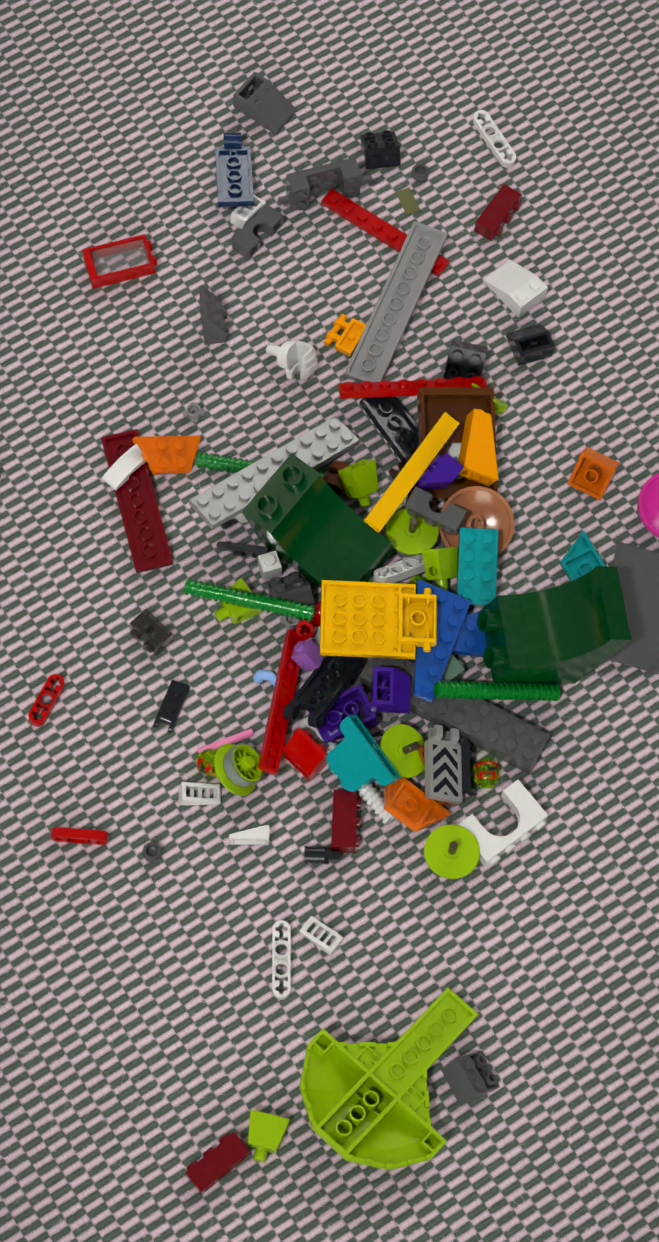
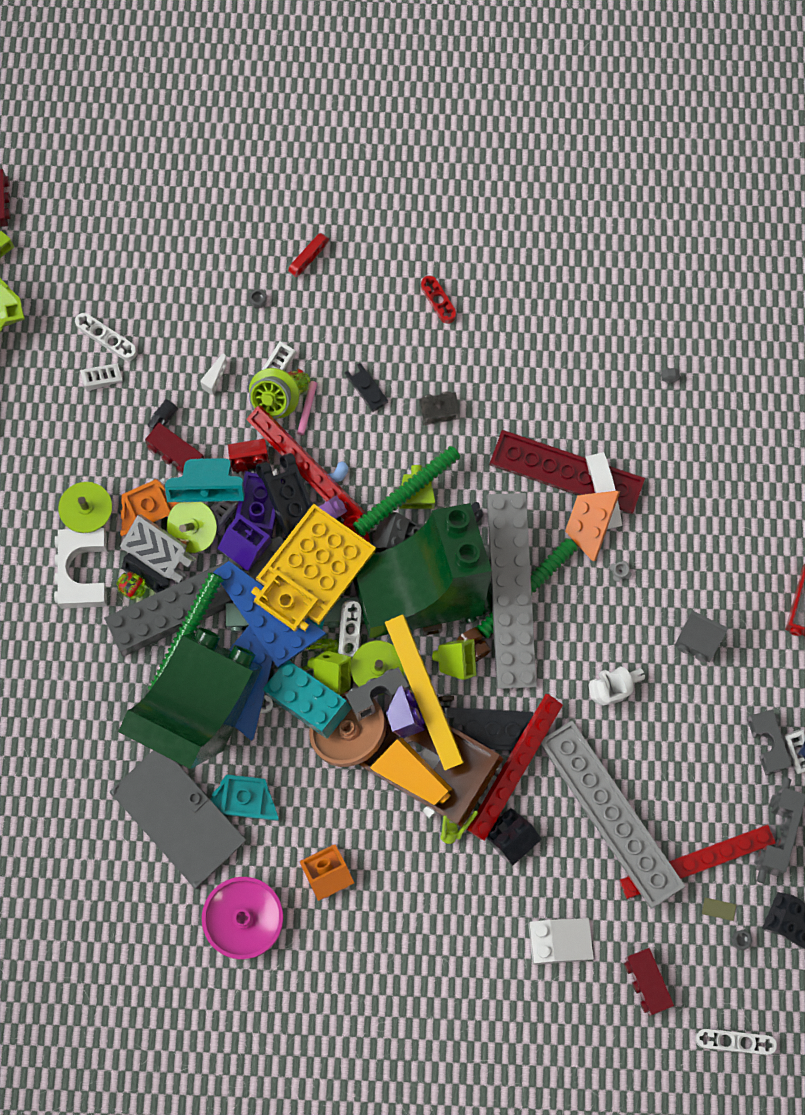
camera: 130 degrees right, 5 degrees up
(350, 337) = (606, 753): light orange plate -> none
(530, 344) = (492, 909): black slope -> none

